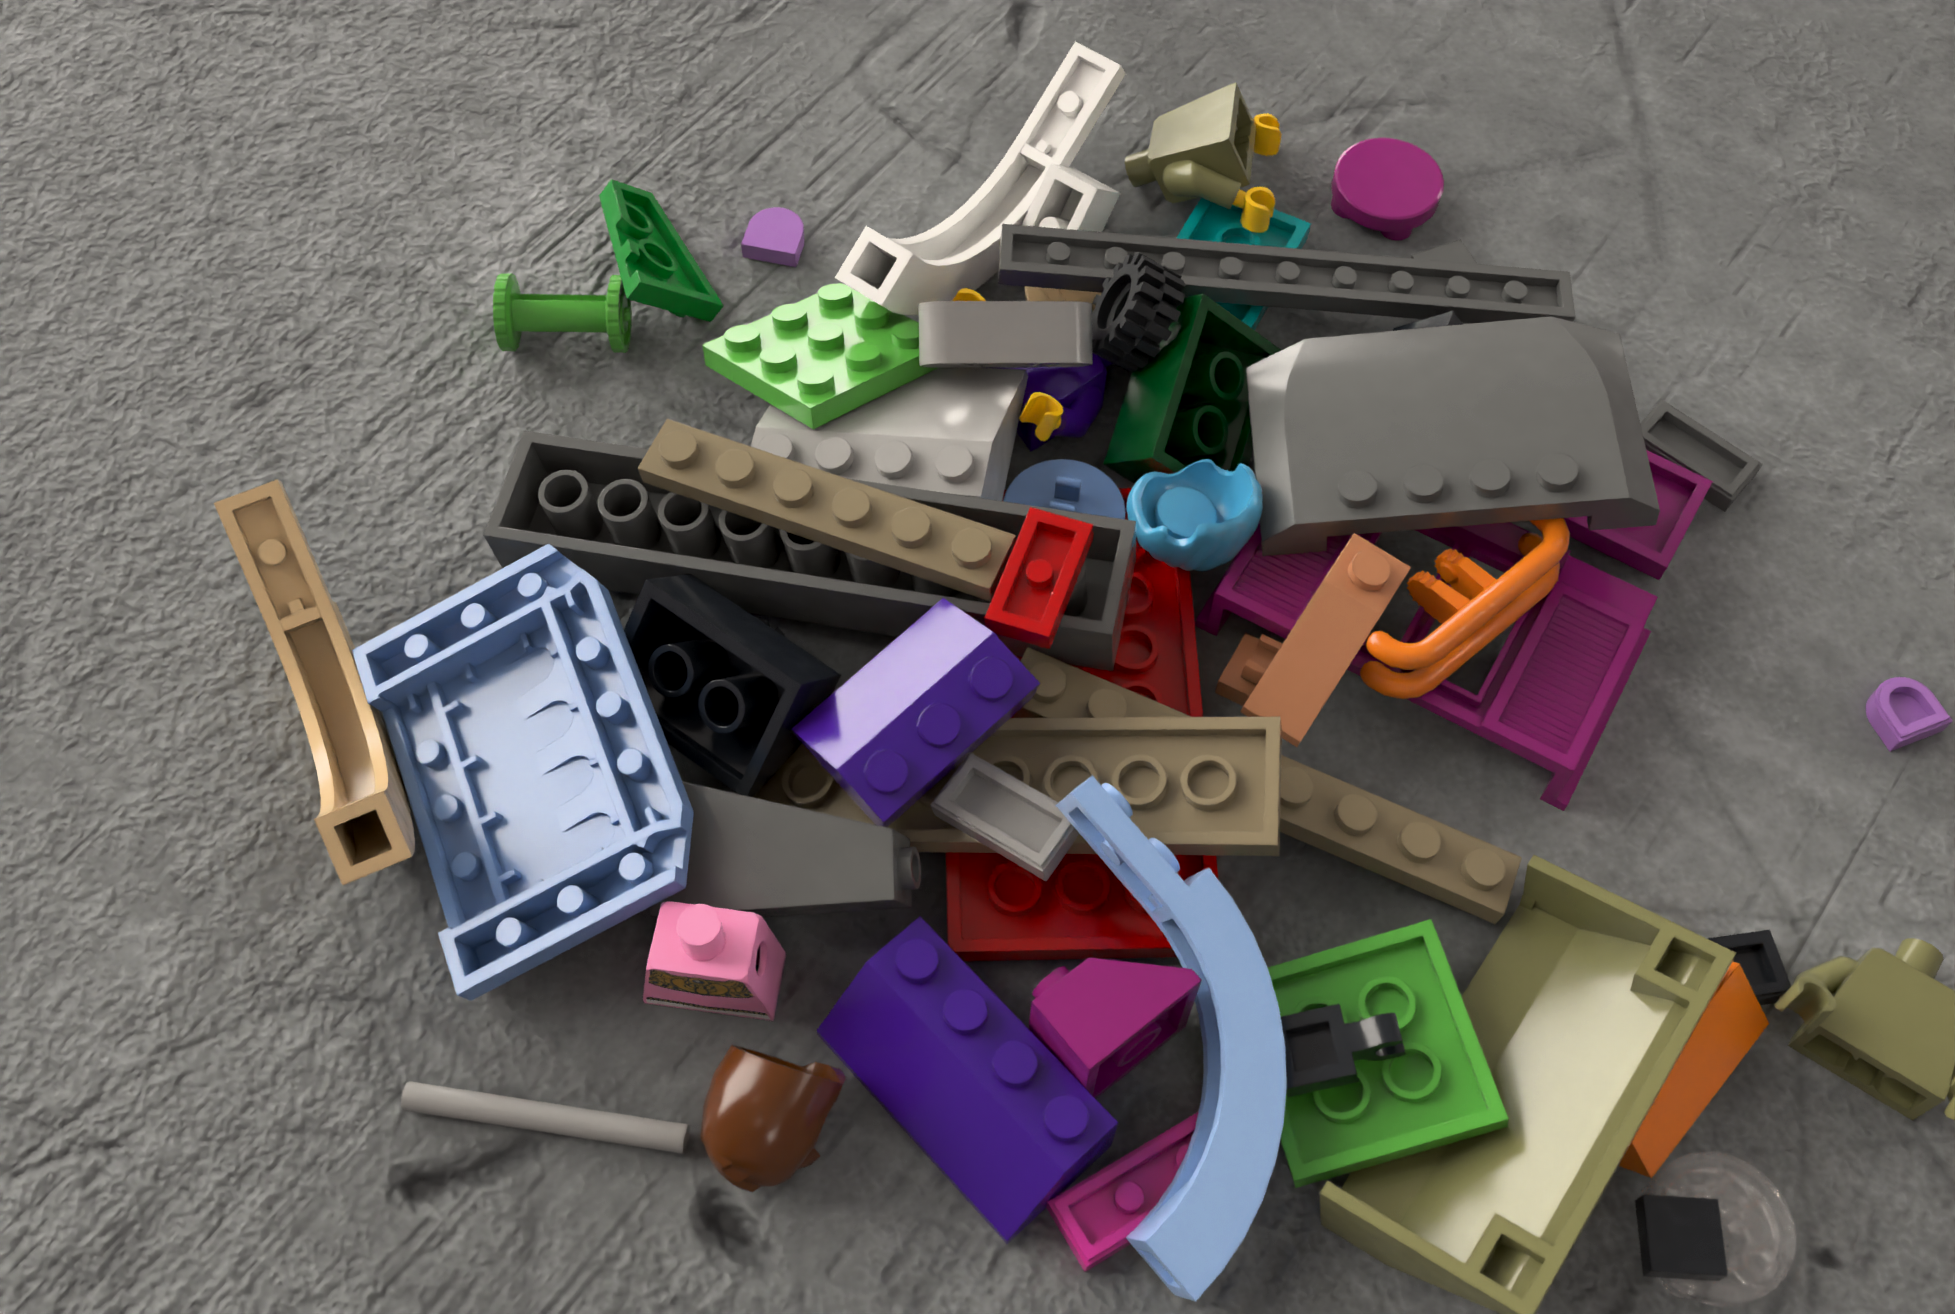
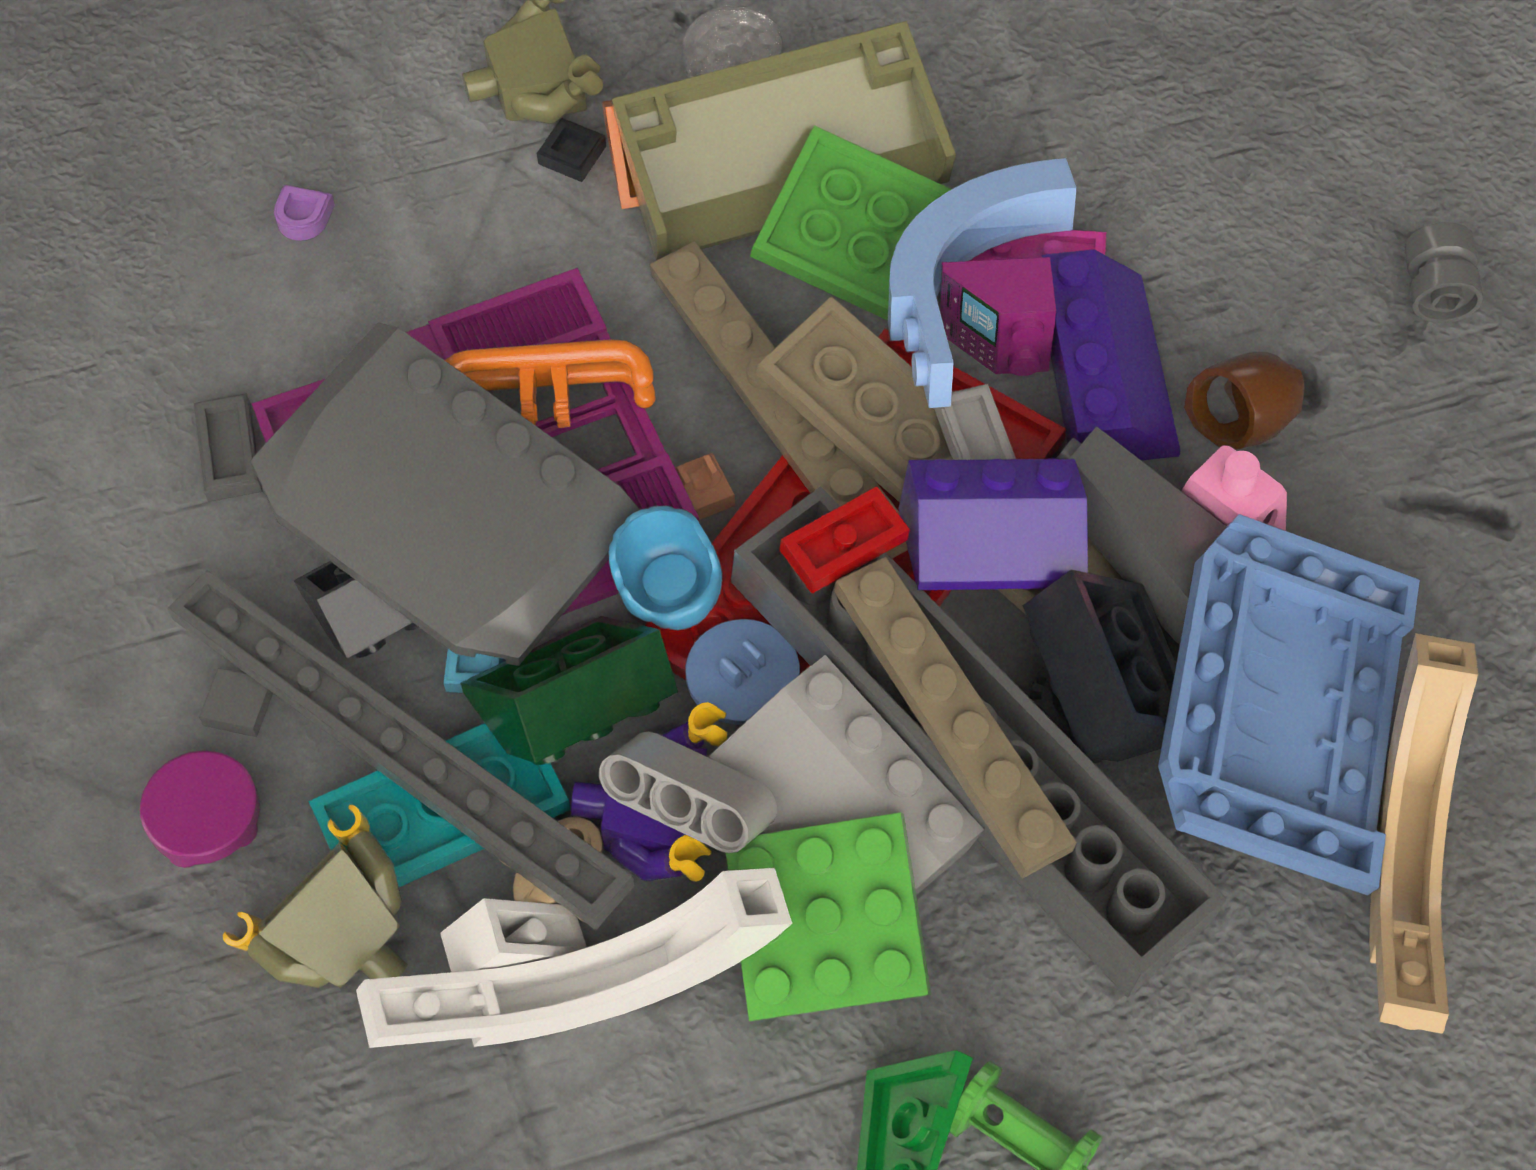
camera: 140 degrees left, 0 degrees up
(545, 1117) = (1393, 504): light grey bar -> none
(774, 237) = (767, 1122): medium lavender tile -> none
(1135, 311) = (543, 739): black tyre -> none
(1324, 1048) = (881, 217): black plate -> none
(1326, 637) = (659, 421): nougat slope -> none
(1681, 1237) = (764, 38): black tile -> none

